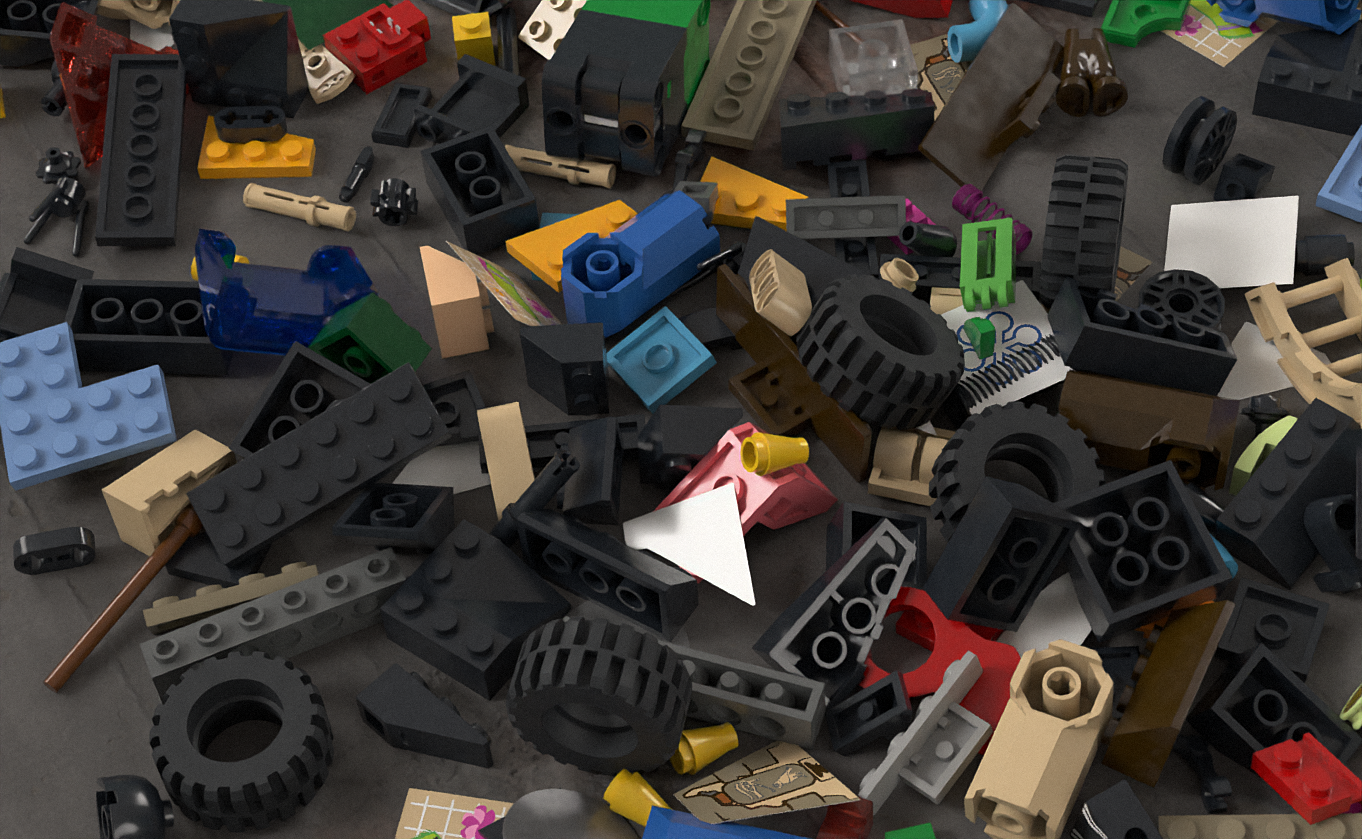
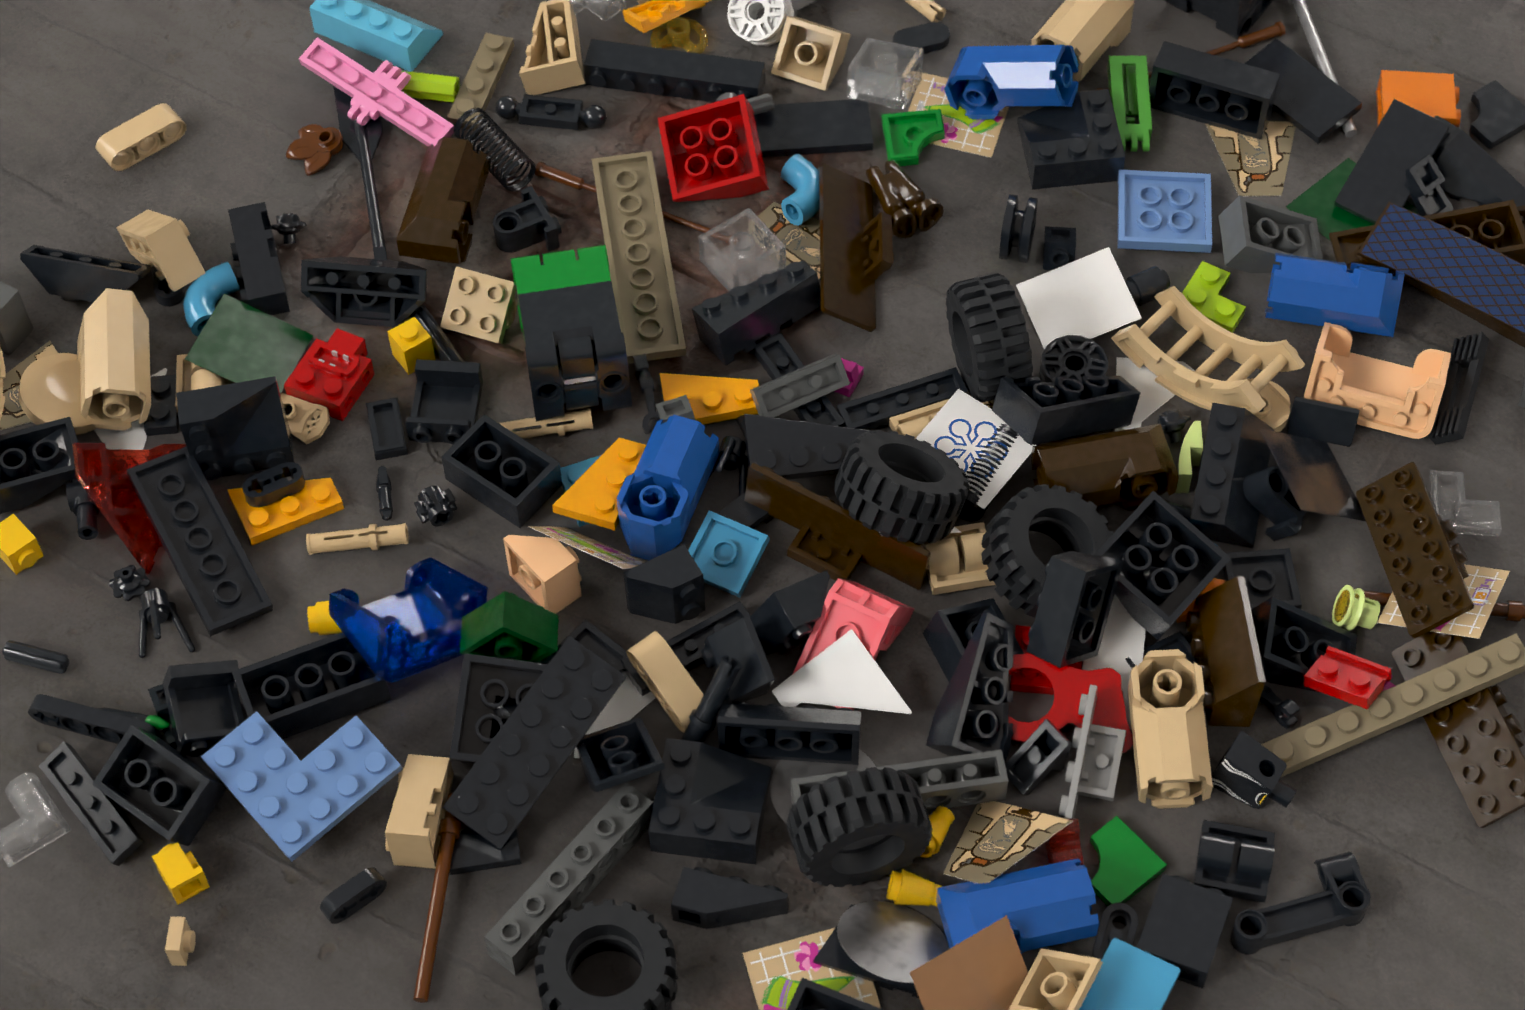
camera: 30 degrees left, 5 degrees up
(171, 613) = (510, 879): dark tan plate -> none
(769, 453) = (874, 597): yellow cone -> none
(780, 292) = (806, 469): tan beam -> none
(900, 274) = (866, 418): tan plate -> none
(928, 239) = (867, 381): black cone -> none
(972, 204) = (872, 336): magenta piece -> none
(981, 336) = (957, 444): green tile -> none
(988, 265) = (927, 385): bright green hinge -> none

